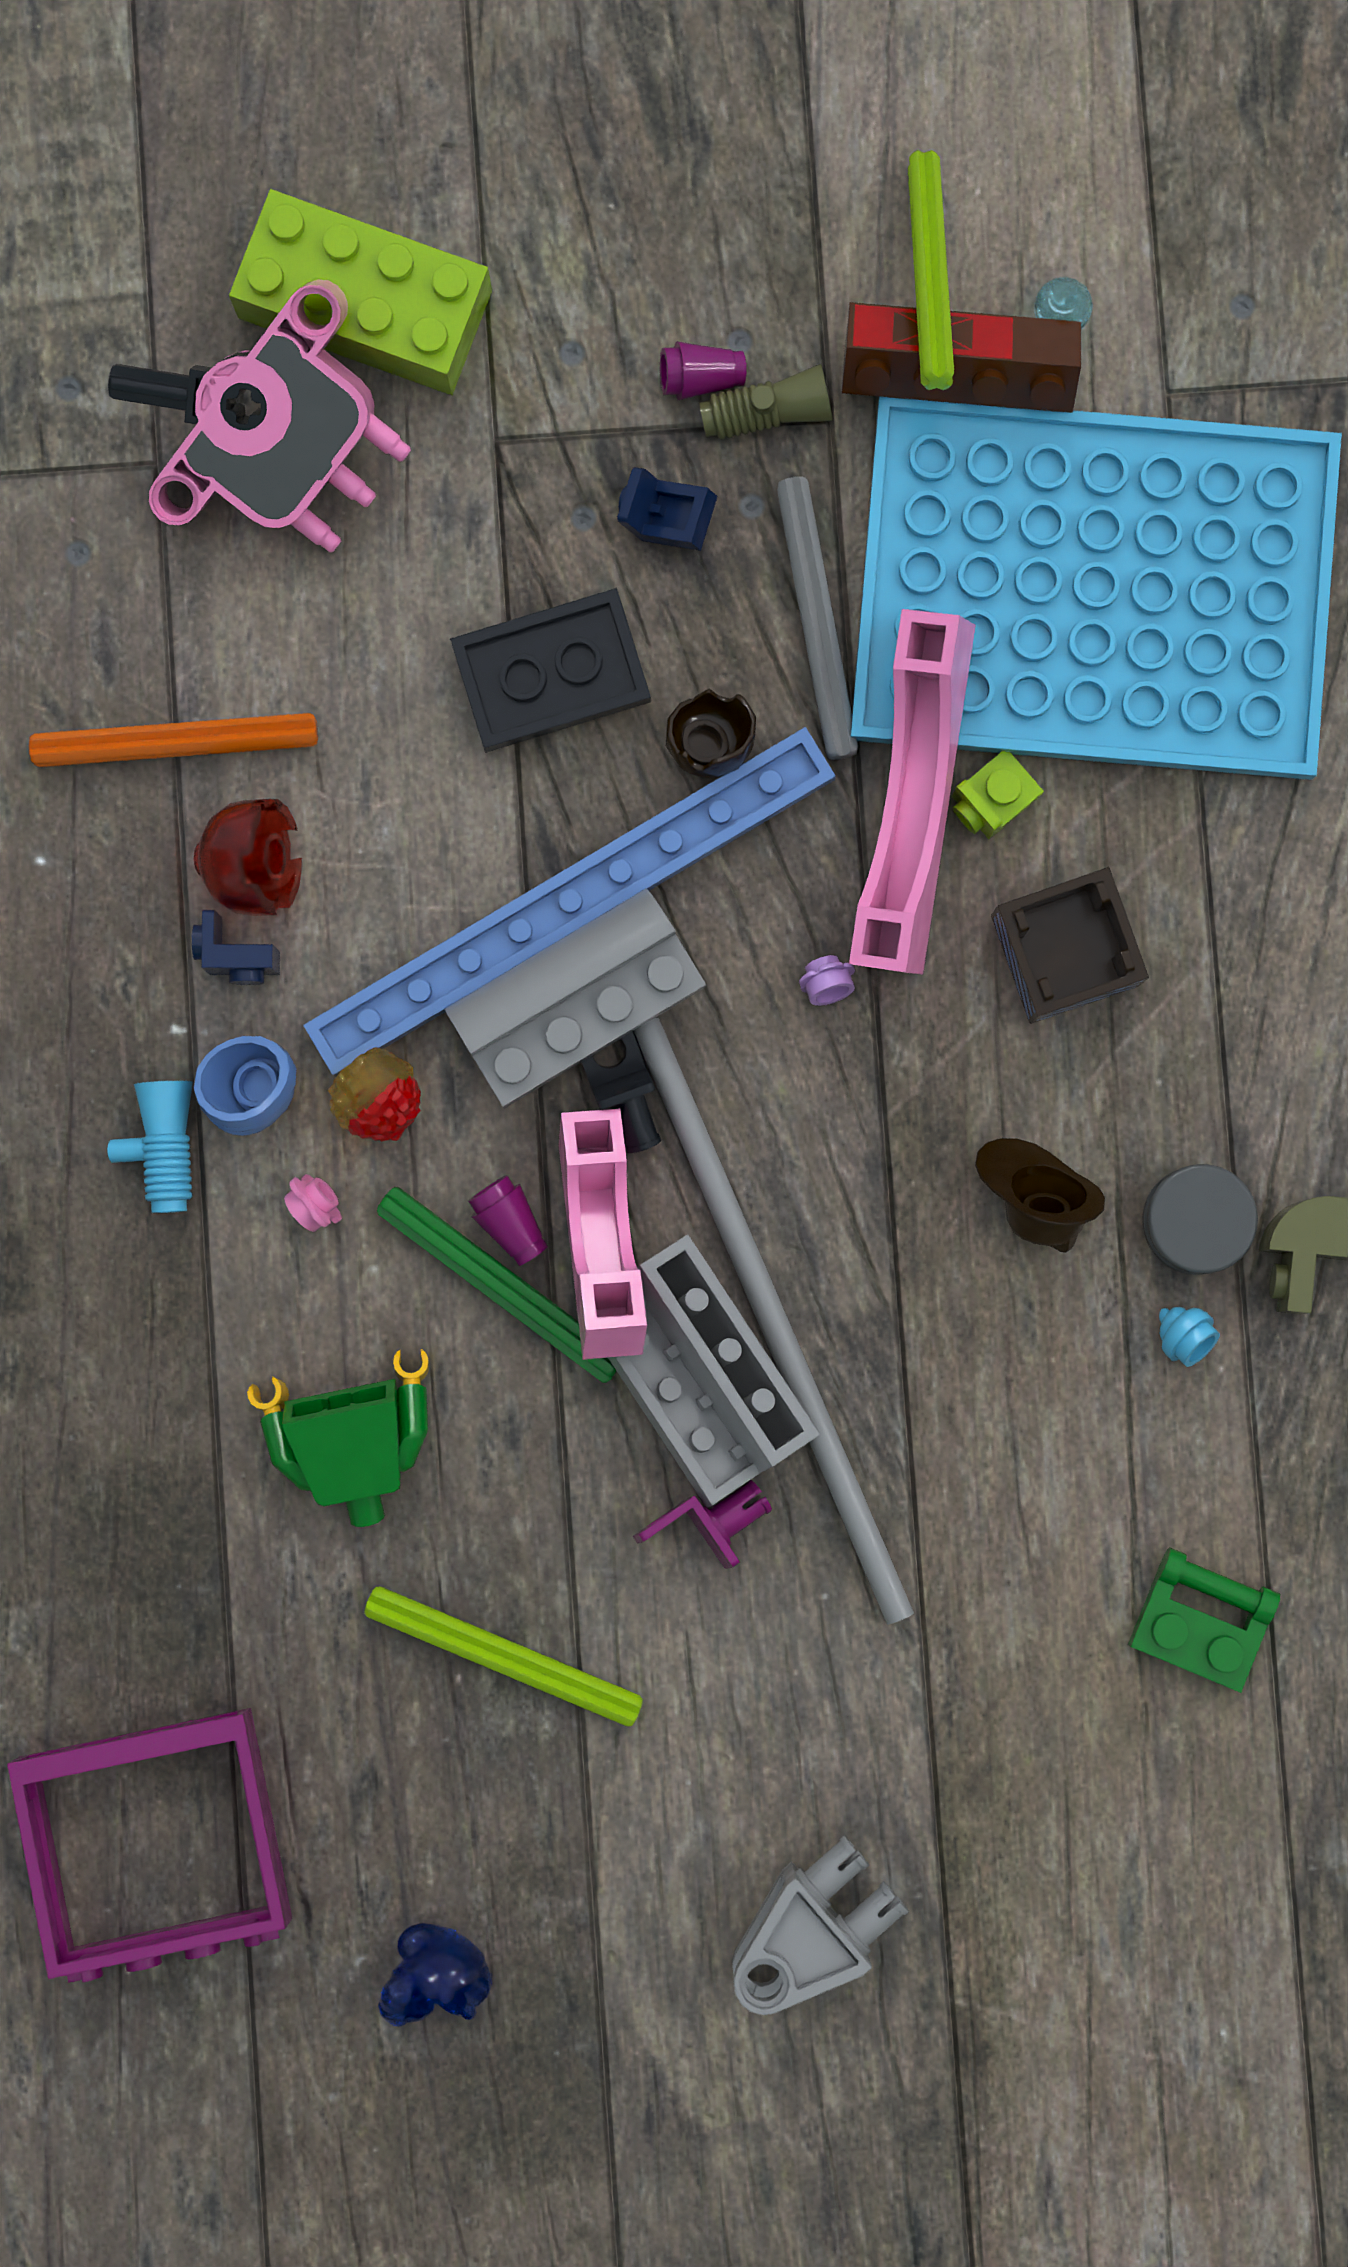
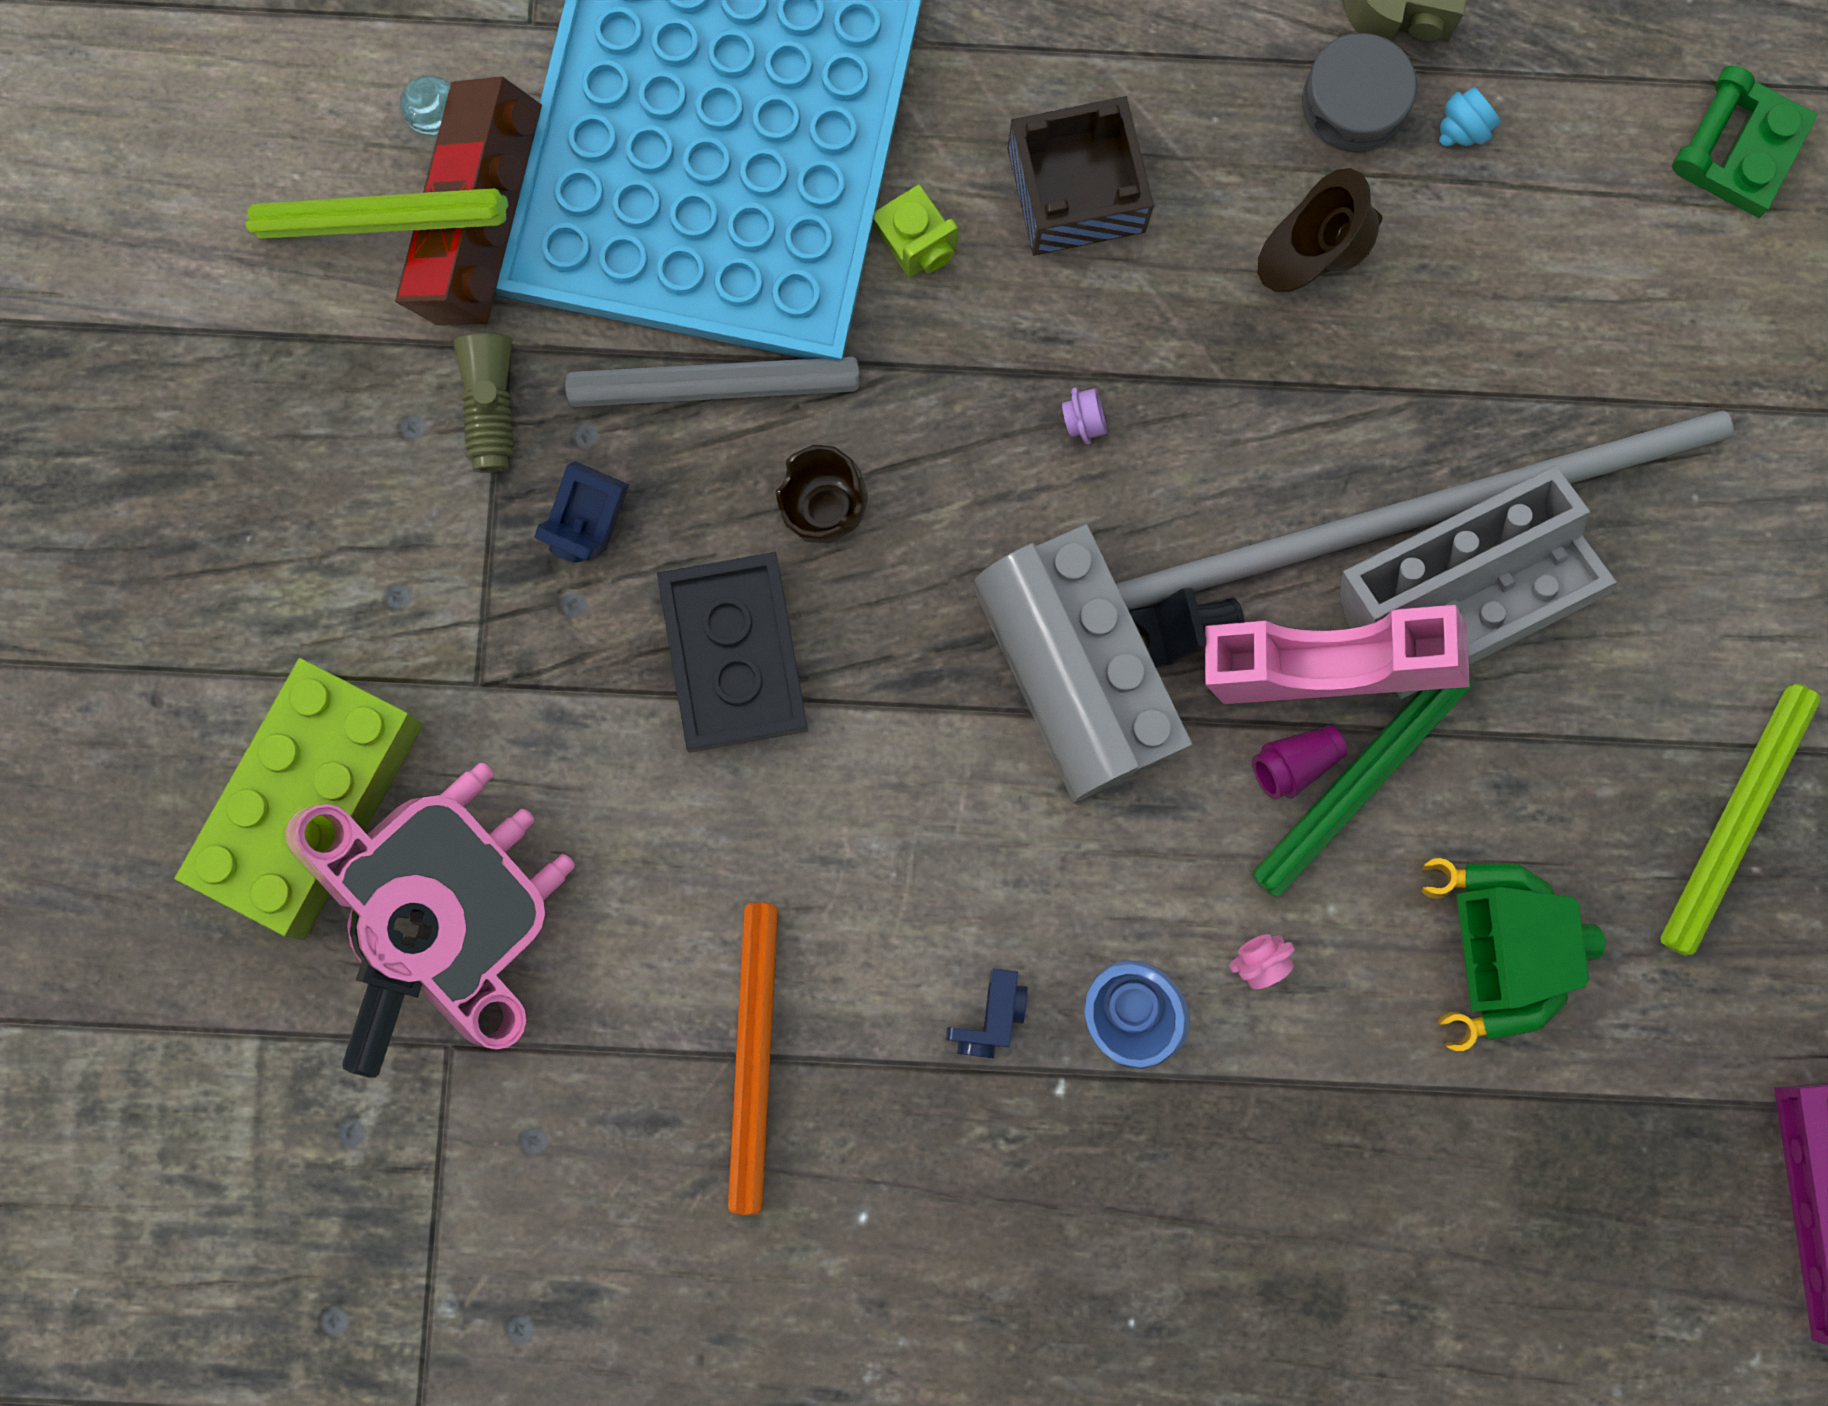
camera: 90 degrees left, 5 degrees down
(164, 1148) = (1190, 1111): medium azure piece -> none
(247, 857) = (894, 988): clear red cylinder -> none
(376, 1096) = (1163, 879): piece -> none
(571, 900) = (979, 666): medium blue plate -> none
(699, 370) = (438, 465): magenta cone -> none
(718, 1523) = (1628, 592): magenta bracket -> none
(928, 711) = (914, 297): bright pink arch -> none

